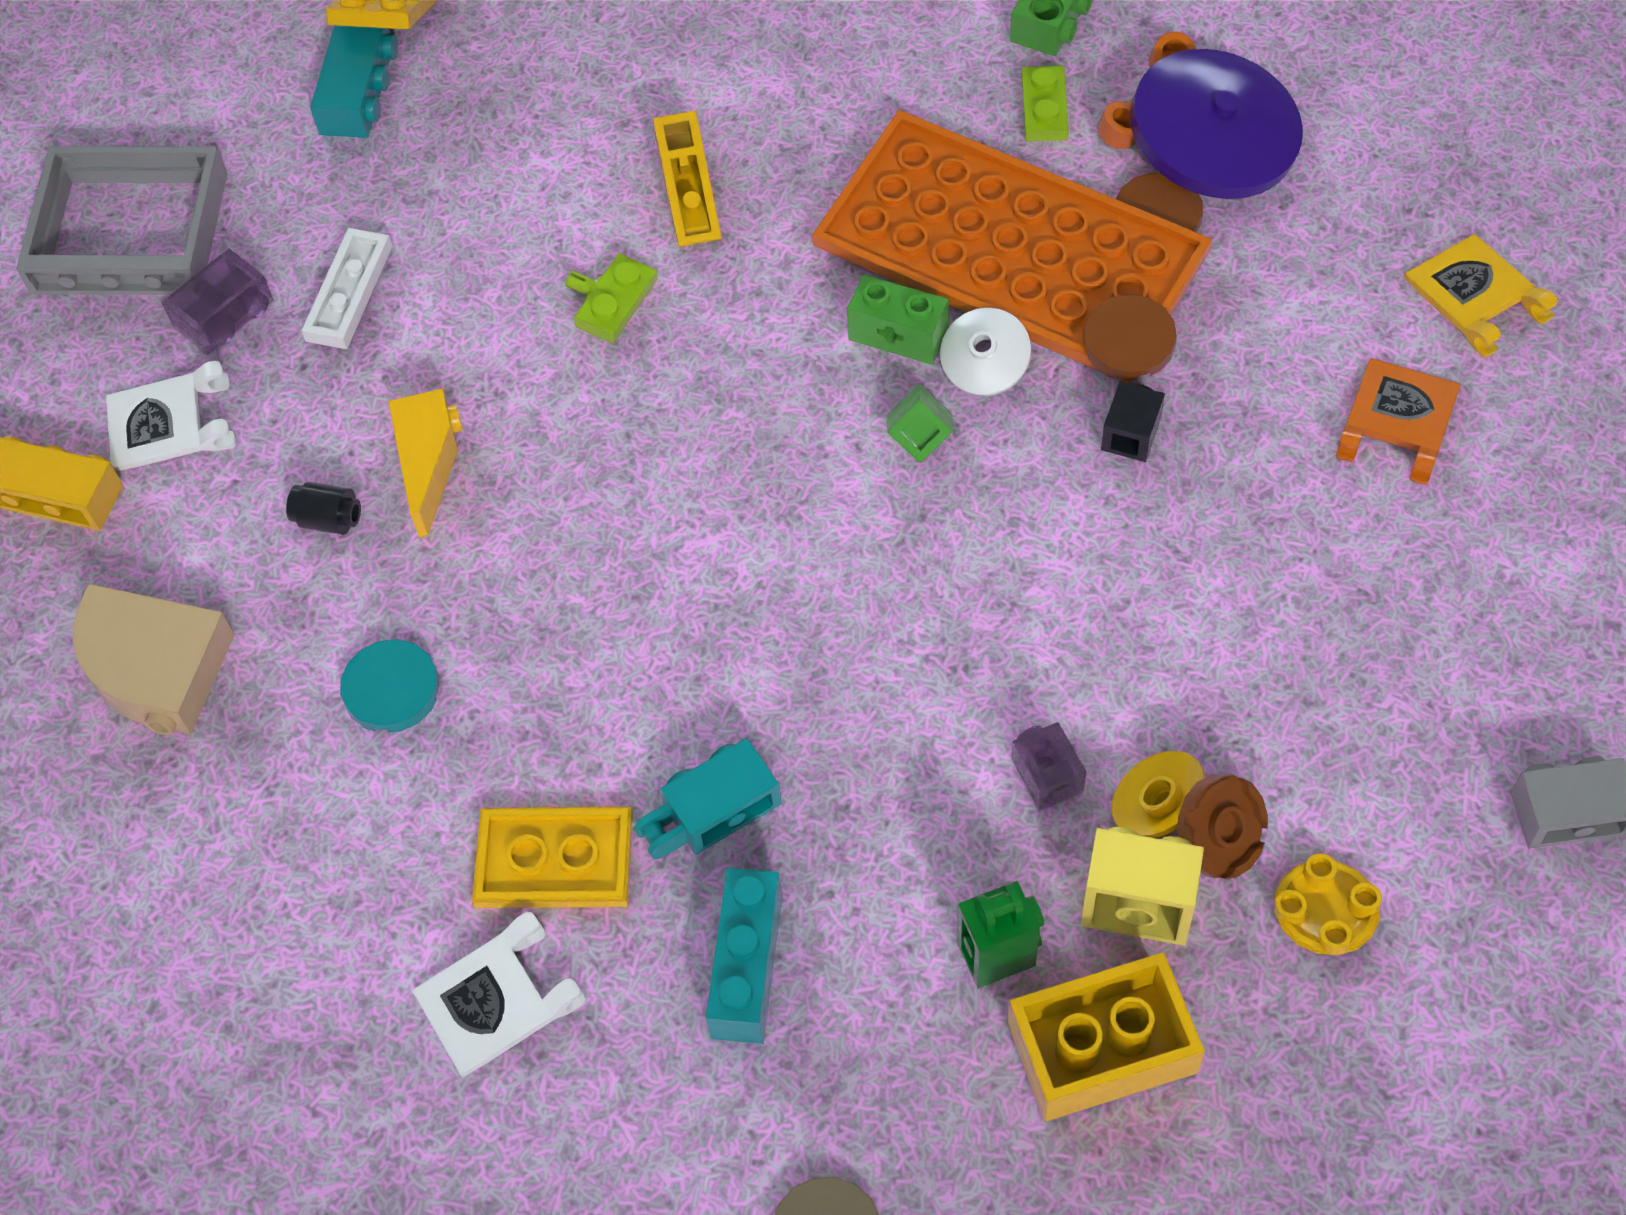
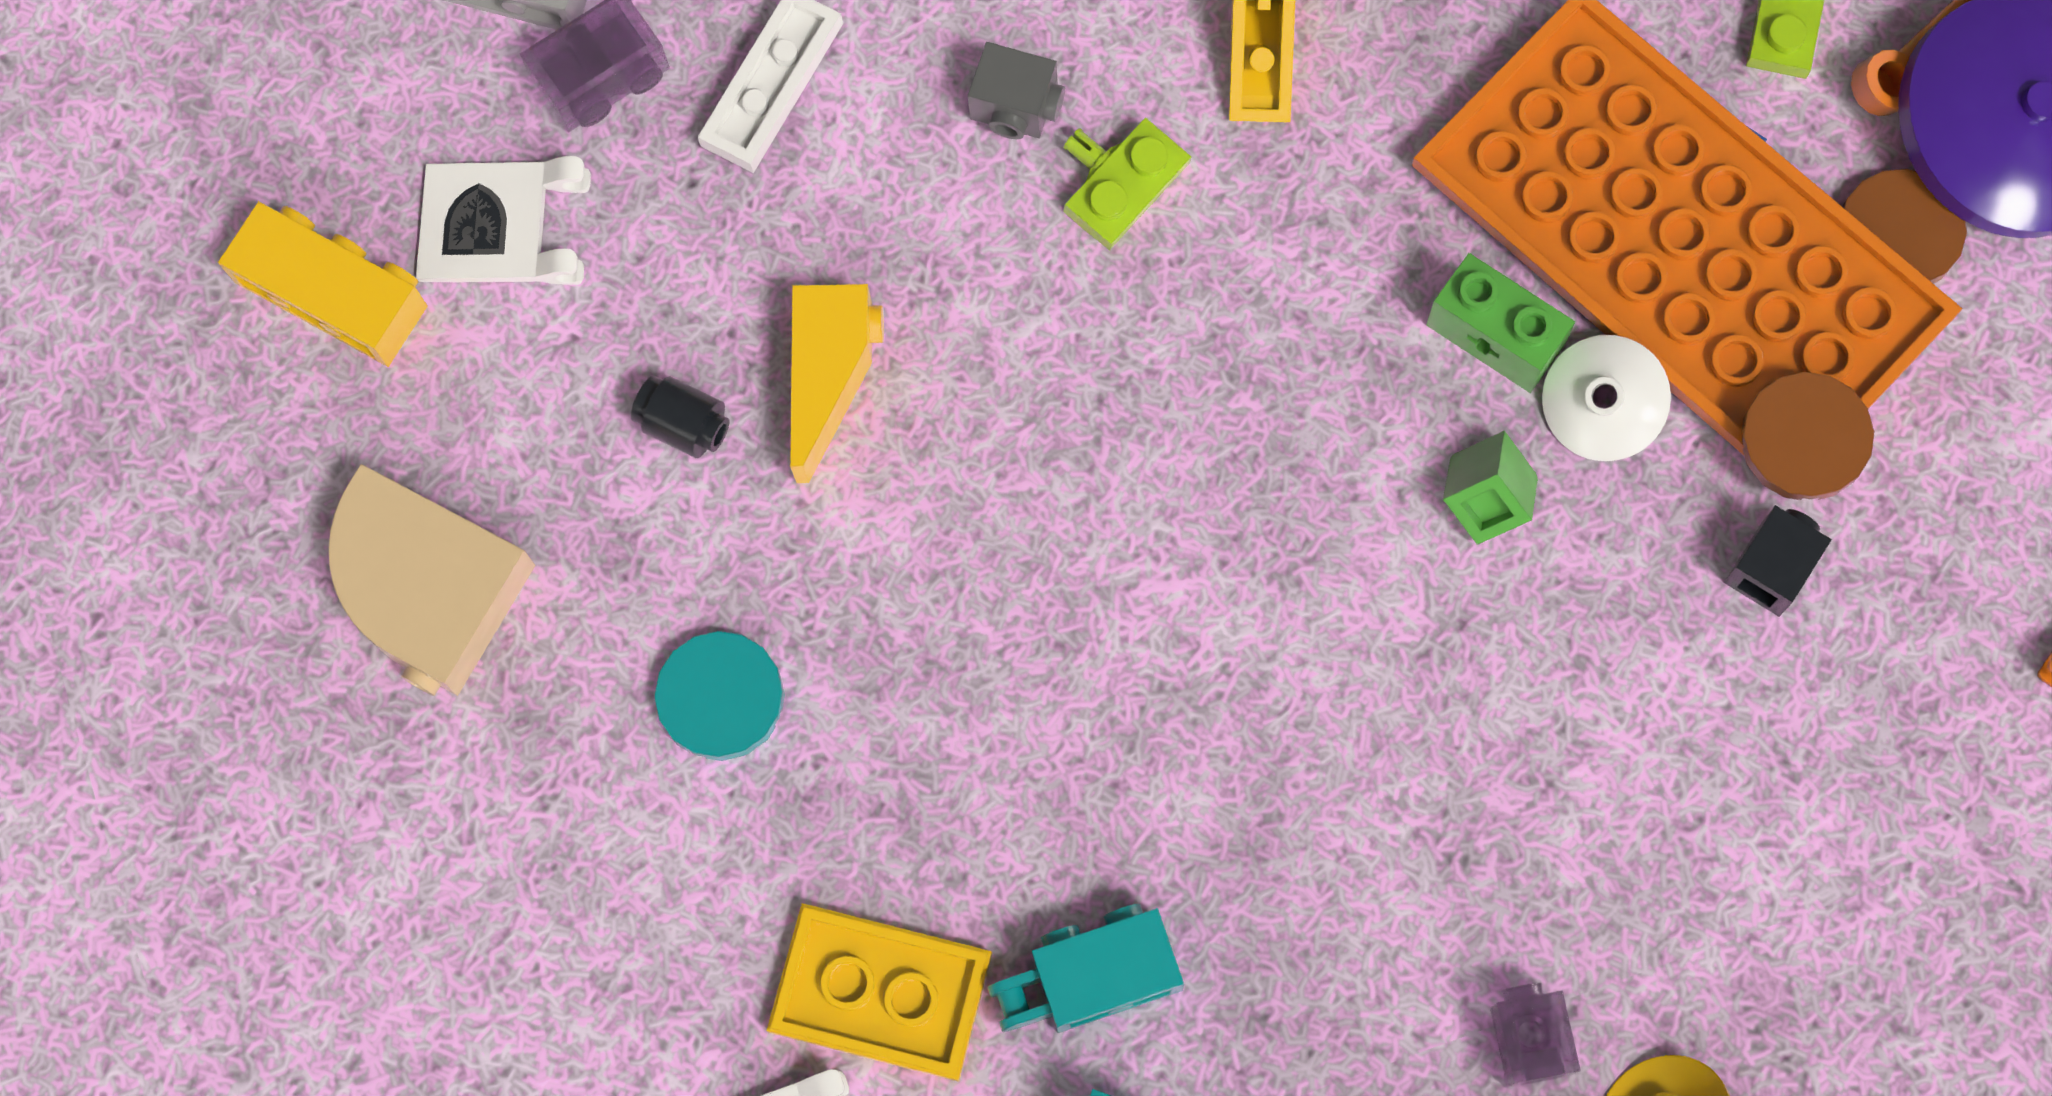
camera: 15 degrees right, 15 degrees up
(522, 256) = (1015, 92): none -> dark grey brick

